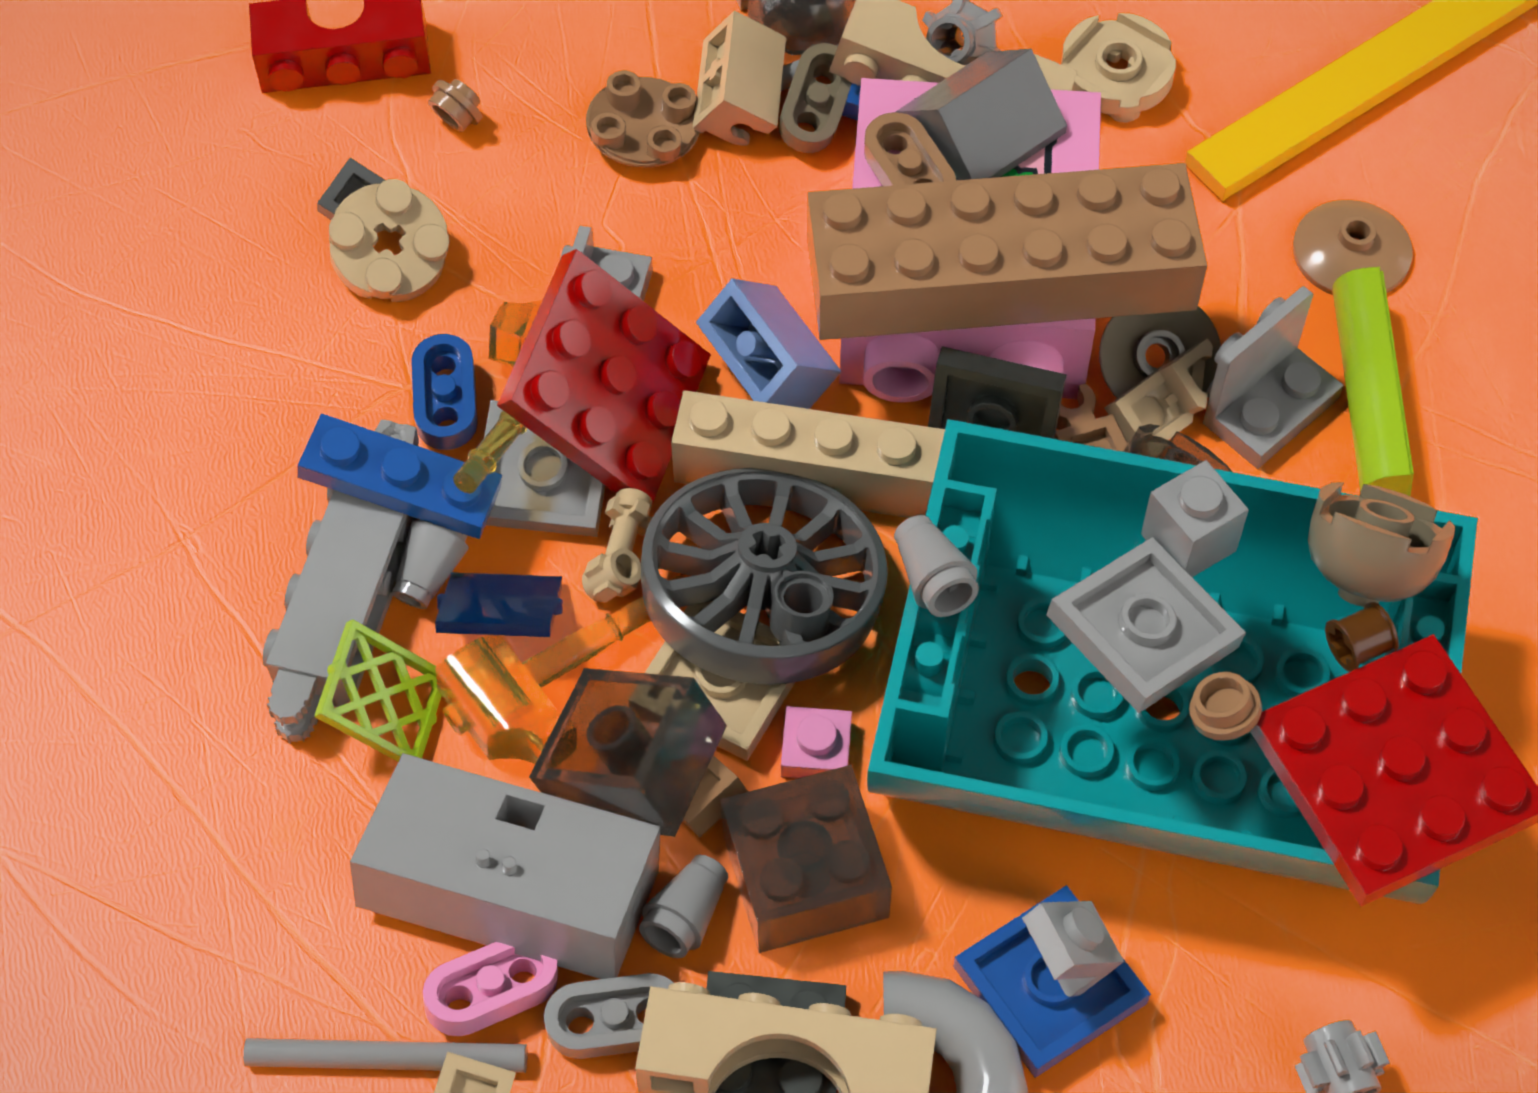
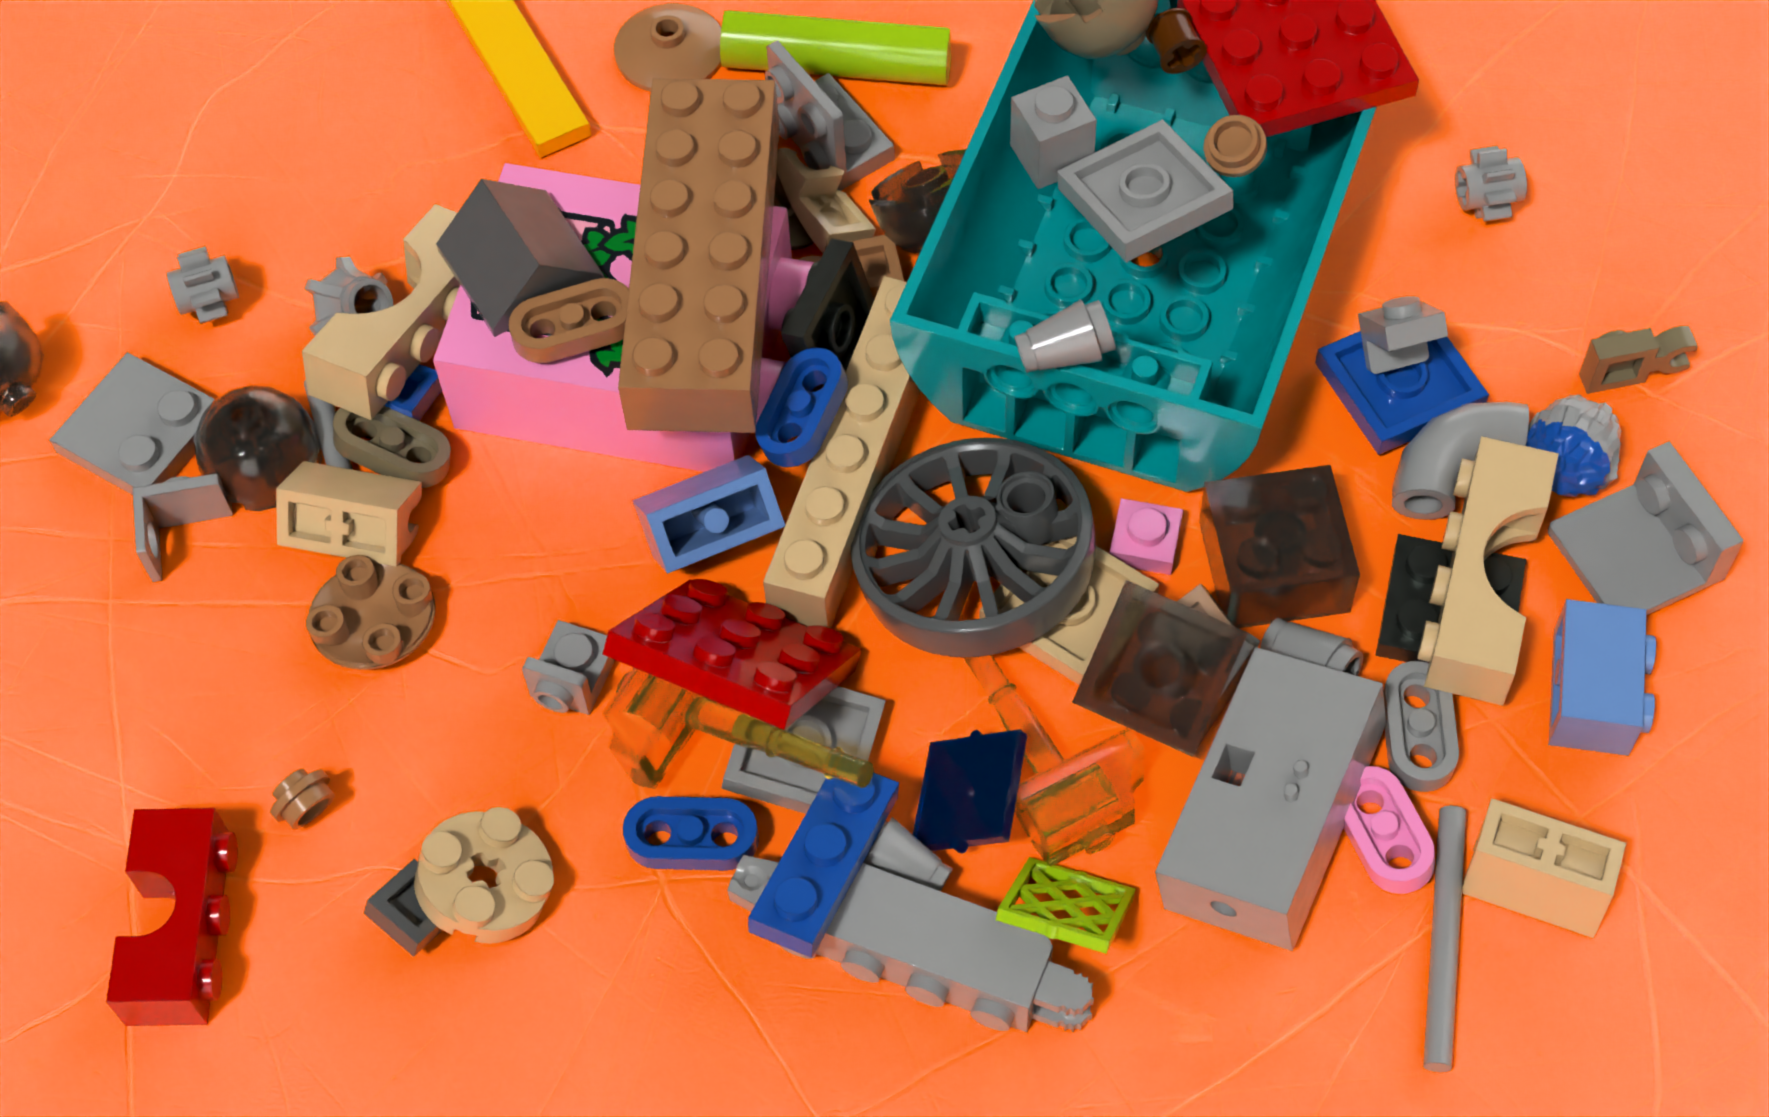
camera: 80 degrees left, 0 degrees up
(619, 568) = (945, 683): tan bar -> none
(873, 386) = (798, 411): none -> blue plate
(1133, 39) = (398, 159): tan plate -> none

